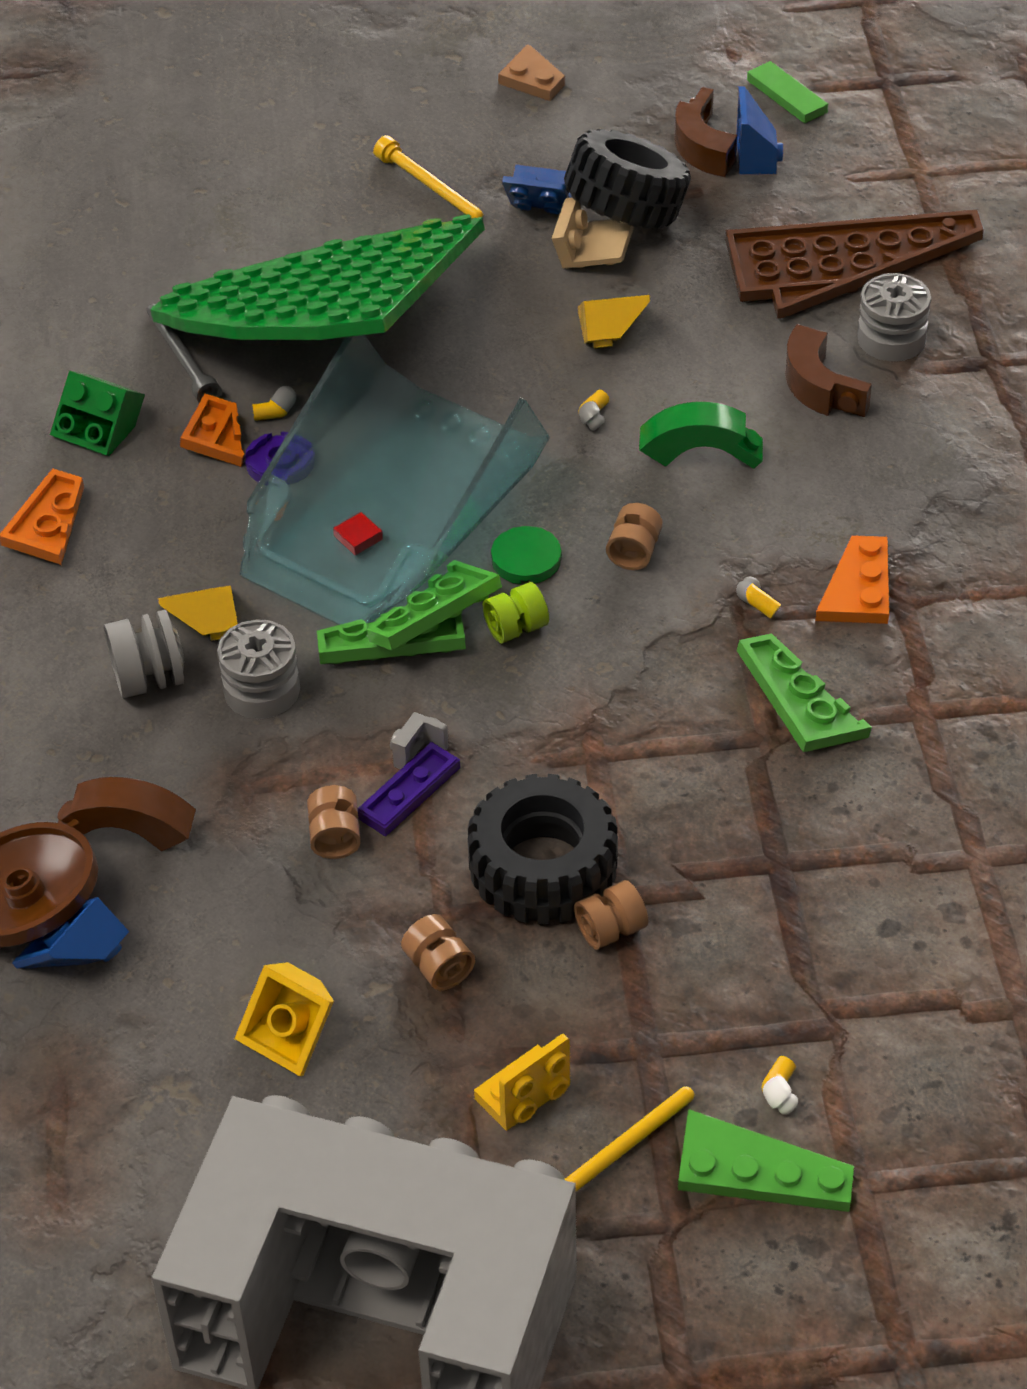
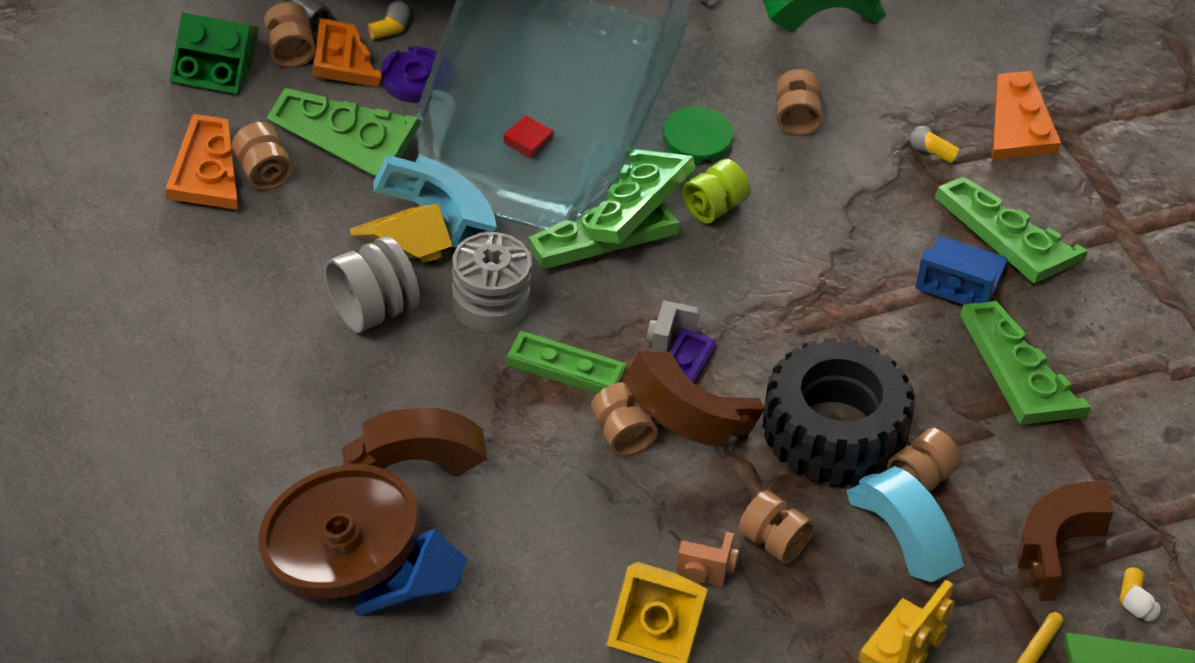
camera: 20 degrees left, 0 degrees up
(98, 517) = (262, 156): none -> medium nougat wheel
(170, 405) = (289, 35): none -> medium nougat wheel
(191, 507) = (345, 129): none -> bright green wing
(247, 573) = (431, 182): none -> medium azure arch
(306, 758) = (564, 363): none -> bright green tile
(357, 977) = (707, 563): none -> nougat bracket
(391, 822) = (683, 406): none -> reddish brown arch
(571, 972) = (914, 518): none -> medium azure arch
(722, 992) = (1061, 514): none -> reddish brown arch
(730, 729) = (960, 272): none -> blue bracket
(752, 836) = (1020, 369): none -> bright green wing

